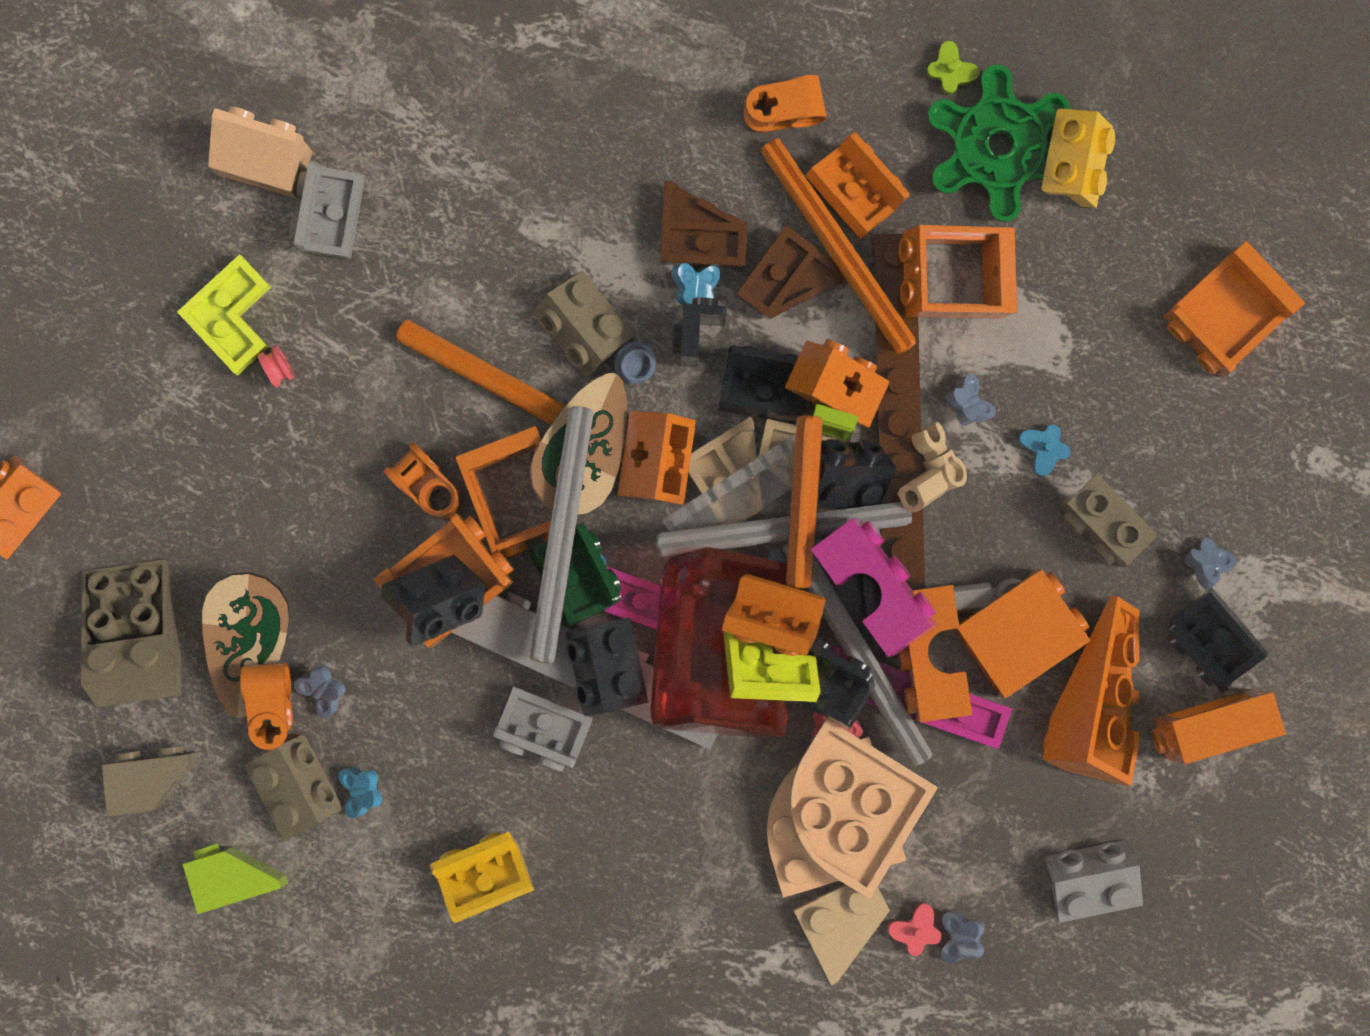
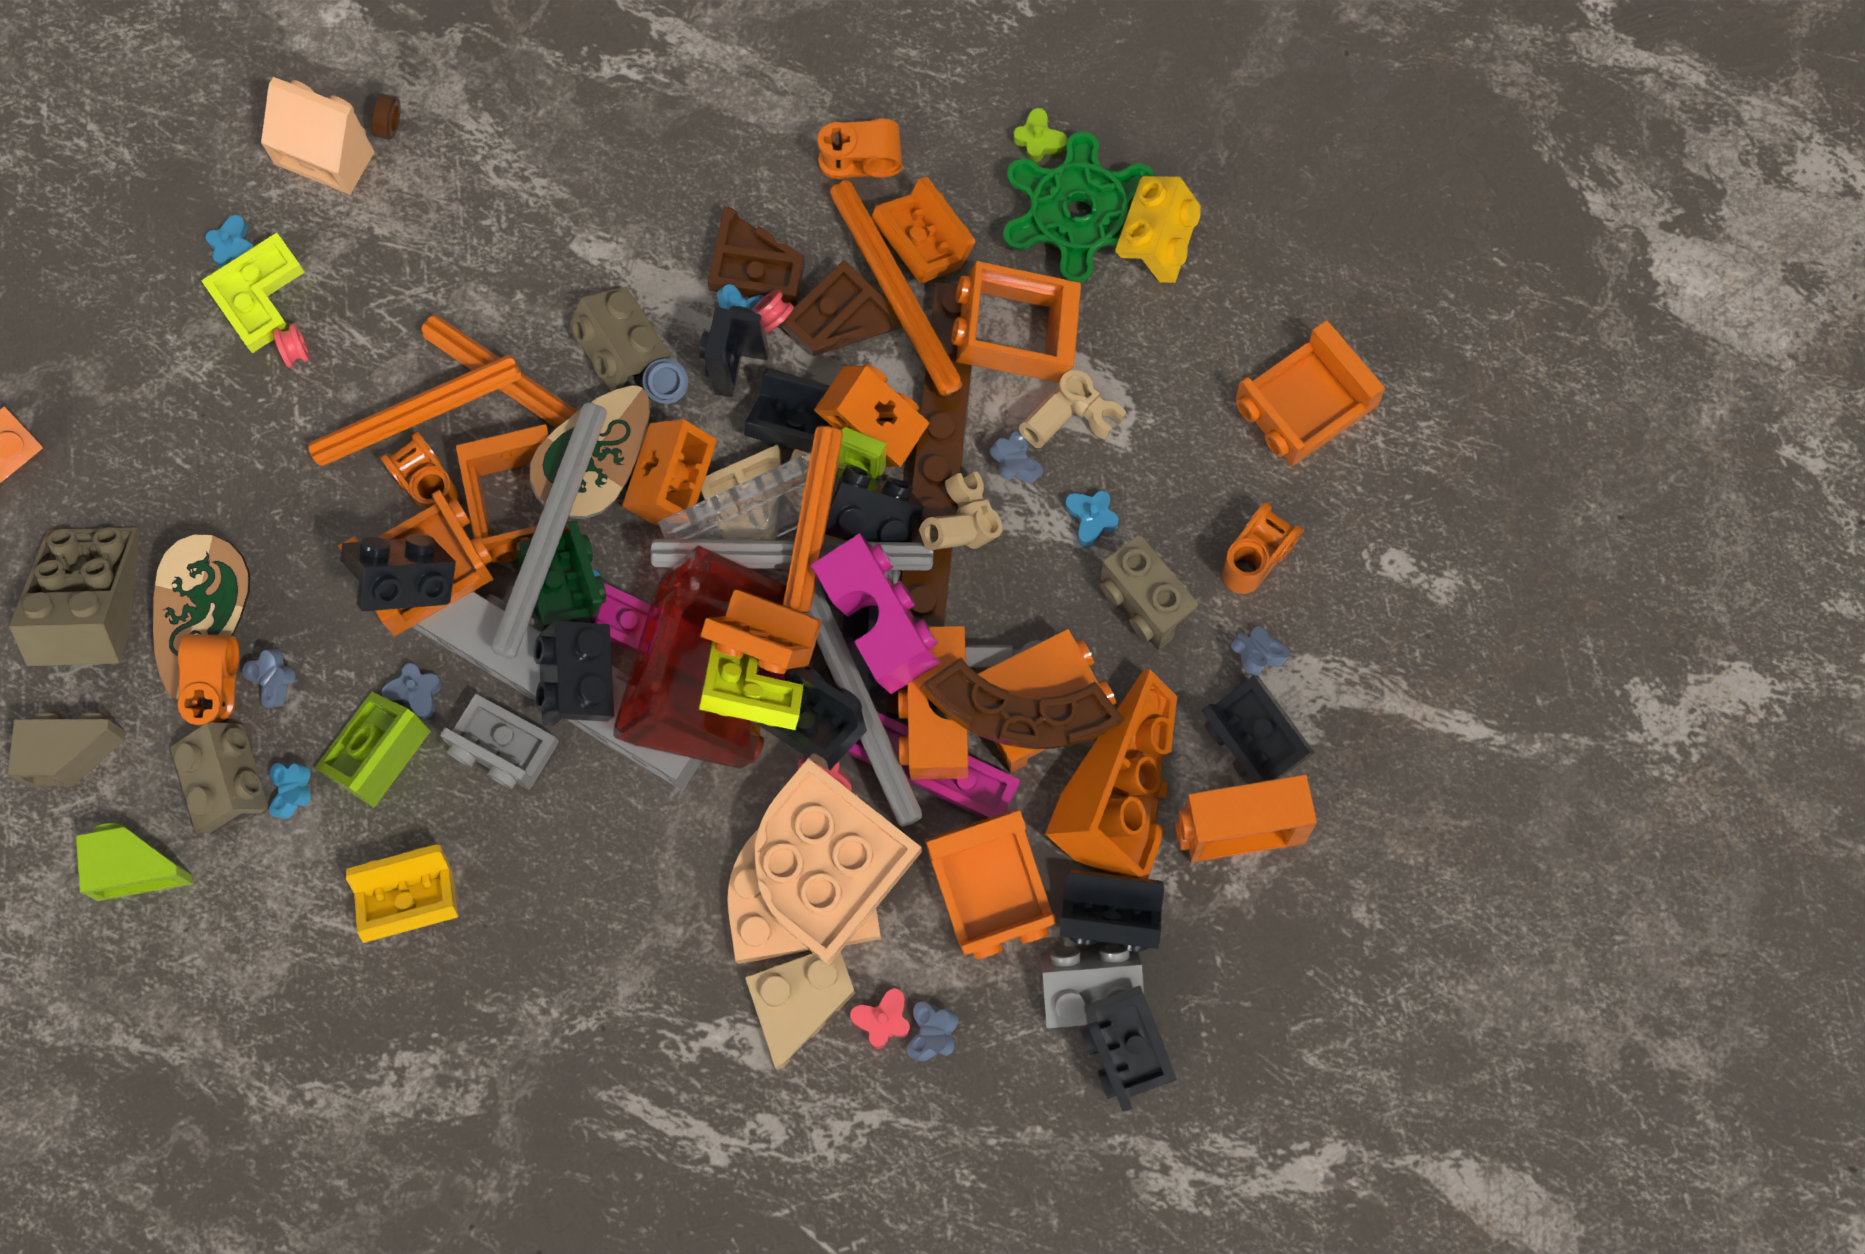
camera: 15 degrees right, 15 degrees down
(193, 265) = (229, 240): none -> dark azure piece
(320, 118) = (386, 116): none -> reddish brown tile
(327, 211) = (374, 201): light grey bracket -> none
(407, 420) = (415, 410): none -> orange axle
(425, 745) = (373, 748): none -> lime slope
(454, 684) = (414, 689): none -> sand blue piece
(725, 284) = (773, 310): none -> coral bush
(998, 806) = (990, 884): none -> orange panel
(1008, 665) = (1018, 720): none -> reddish brown tile
(1014, 333) = (1072, 395): none -> tan bar
(1106, 817) = (1112, 910): none -> black bracket
(1134, 935) = (1128, 1045): none -> black bracket
(1204, 458) = (1264, 544): none -> orange piece

